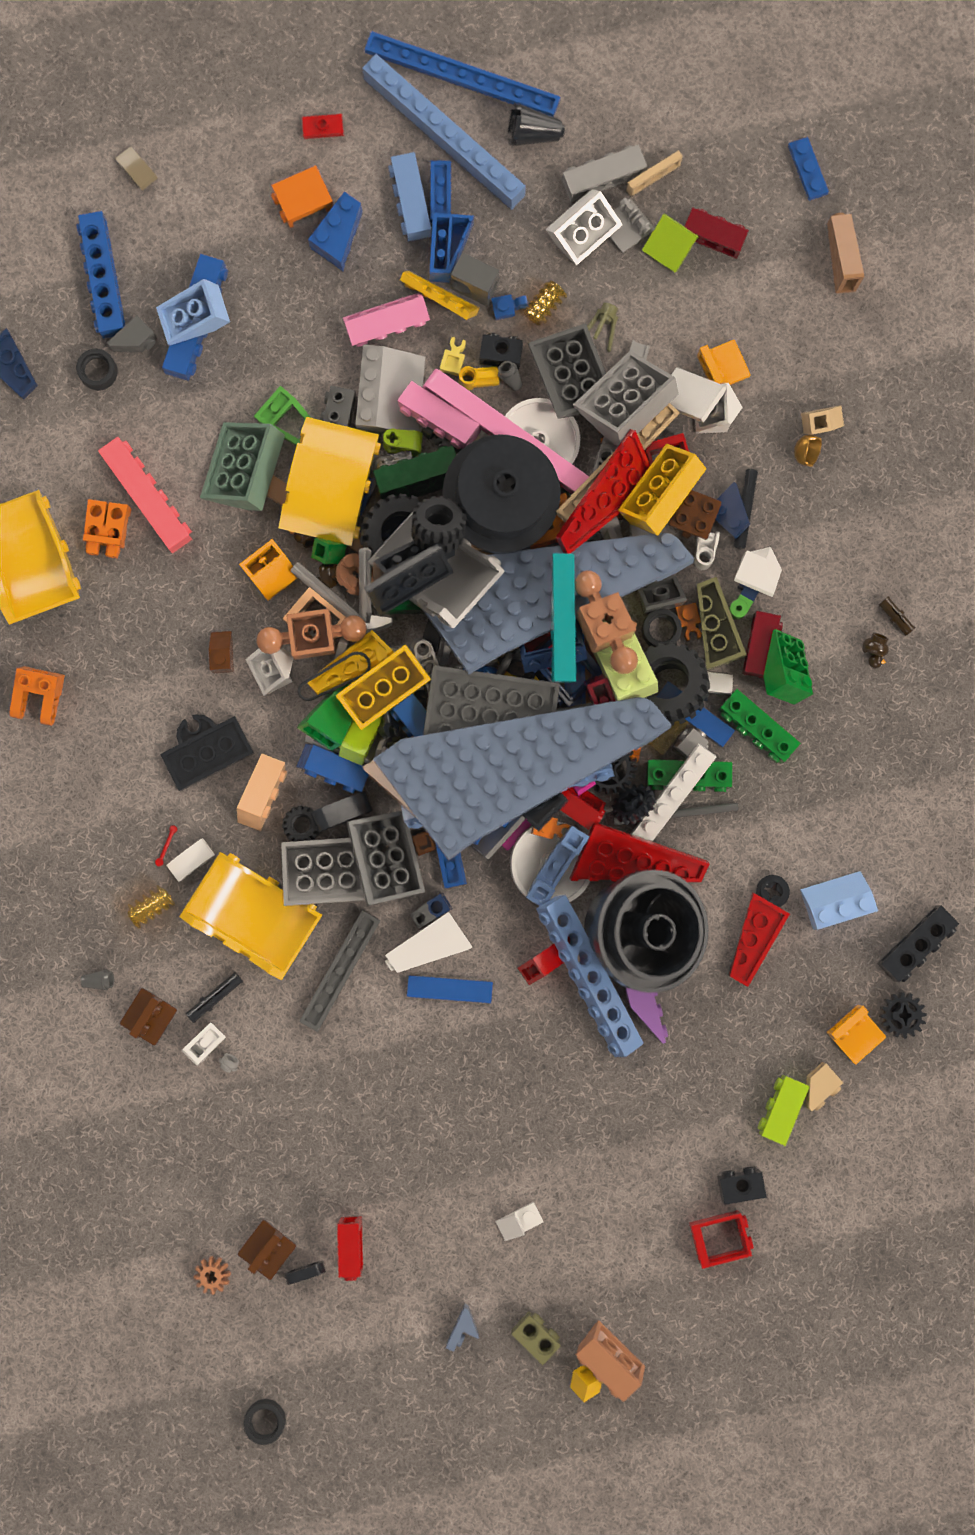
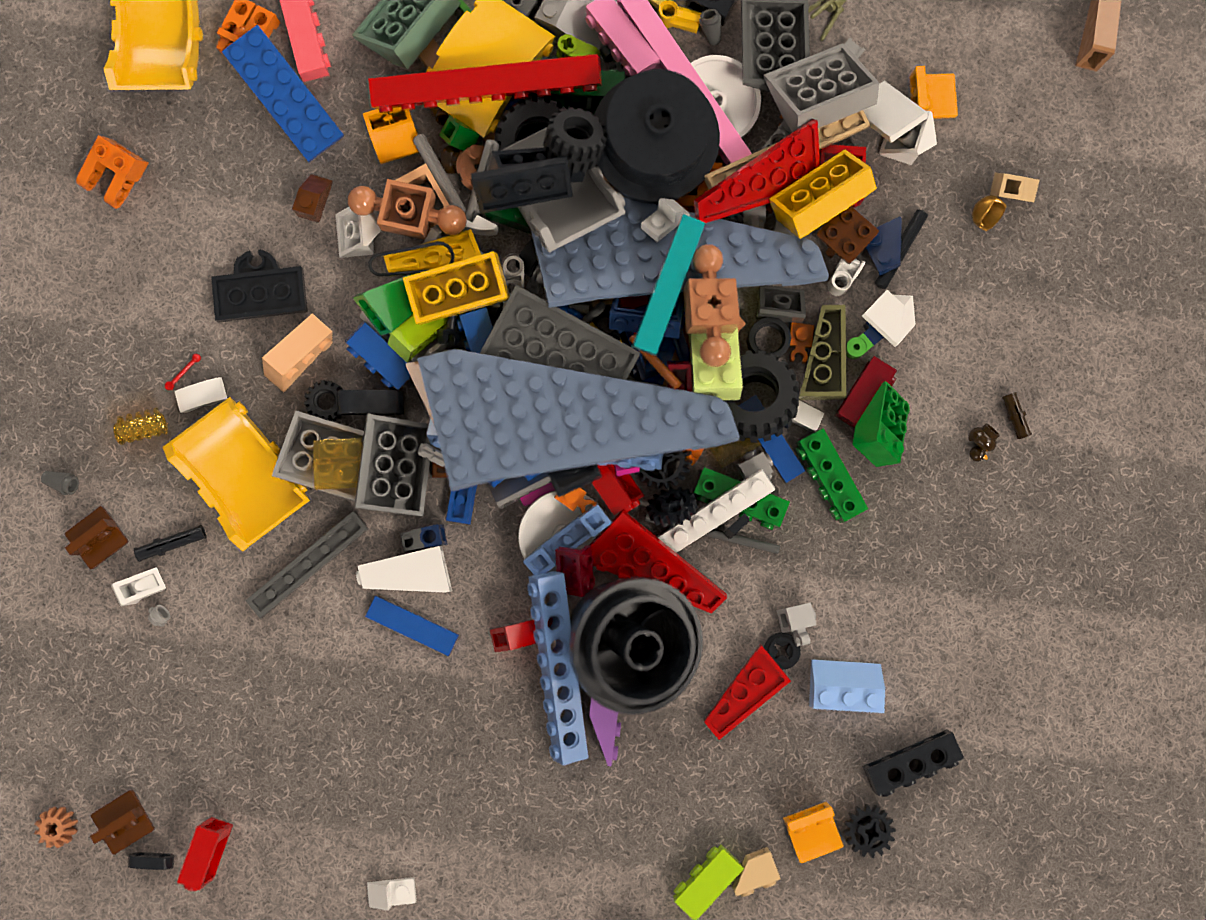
camera: 20 degrees right, 0 degrees up
(161, 571) = (282, 93): none -> blue plate
(336, 873) = (336, 463): none -> clear yellow slope
(339, 500) = (486, 82): none -> red brick
(416, 836) = (434, 455): none -> light grey axle
(536, 562) = (664, 219): none -> white slope
(574, 886) = (577, 569): none -> dark red bracket
(580, 689) = (660, 367): none -> dark orange bar
(695, 800) = (736, 526): none -> black tile
(775, 860) = (797, 620): none -> light grey brick

